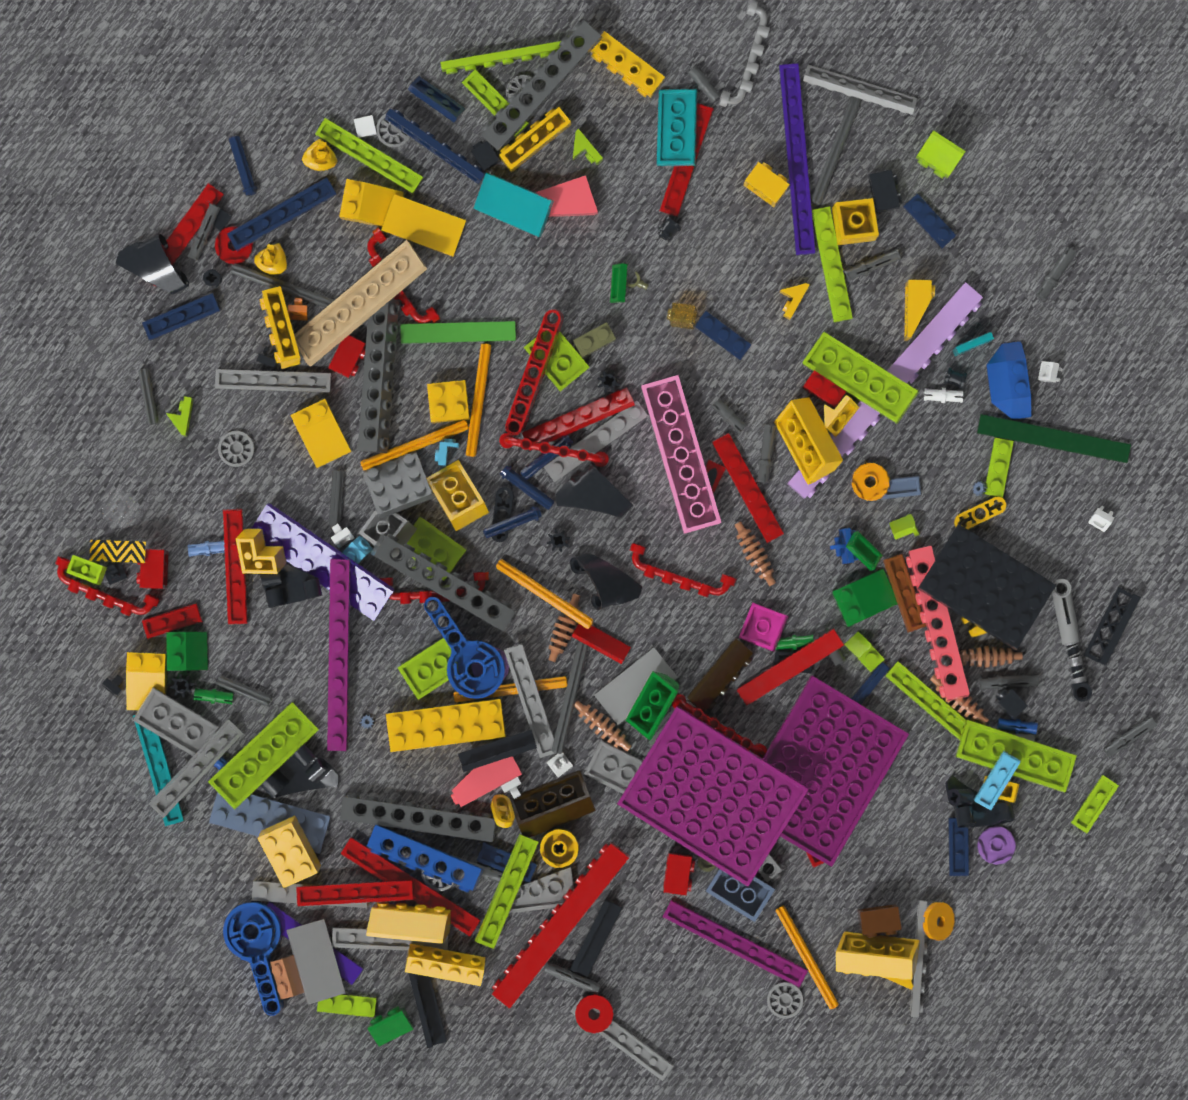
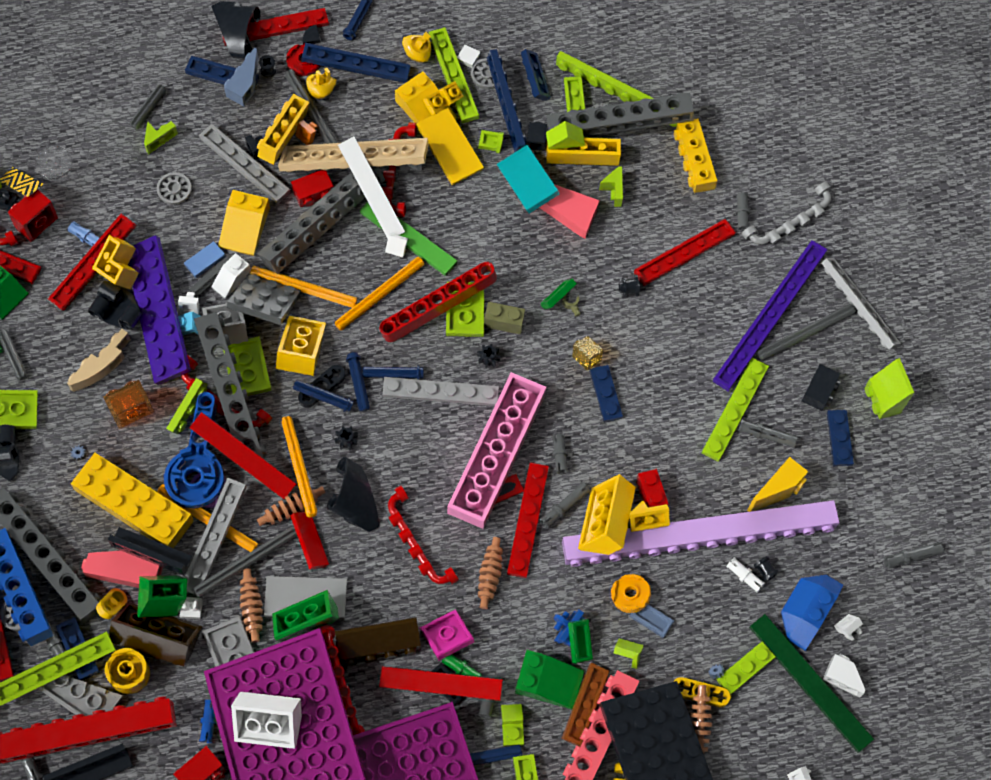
camera: 35 degrees right, 20 degrees down
(196, 252) = (285, 36): dark grey pin -> none
(211, 314) = (242, 83): none -> sand blue slope
(317, 488) = (204, 259): none -> medium blue tile
(318, 648) = (94, 368): none -> tan slope
(338, 655) = (103, 383): magenta plate -> none
(352, 486) = (231, 275): none -> white slope
(373, 656) = (128, 404): none -> clear orange brick
(382, 188) = (443, 98): none -> yellow slope
(399, 322) = (370, 187): none -> white sticker
(420, 619) = (187, 407): none -> lime plate
(427, 669) = (156, 450): lime plate -> none
(441, 454) = (318, 306): medium azure bracket -> none
(448, 401) = (356, 274): yellow brick -> none
(451, 190) = (491, 141): none -> lime tile
(456, 349) = (396, 245): none -> white tile
(498, 623) = (242, 455): none -> red tile
(507, 441) = (375, 337): red bar -> none
(512, 787) = (133, 591): white tile -> none
(515, 145) = (565, 136): none -> lime slope
(534, 775) = (161, 595): none -> green slope
(580, 417) = (441, 363): red plate -> none
(593, 493) = (405, 423): black panel -> none
(647, 833) = (208, 722): none -> blue pin
(677, 127) = (696, 224): teal tile -> none
(697, 802) = (266, 719): none -> white slope
(766, 184) = (732, 309): yellow brick -> none
(796, 294) = (689, 407): yellow slope -> none
(855, 221) = (780, 389): yellow brick -> none
(860, 377) = (690, 505): lime plate -> none
(972, 344) = (802, 551): teal tile -> none
(996, 534) = (701, 715): none -> nougat piece
(1073, 413) = (844, 675): none -> white slope

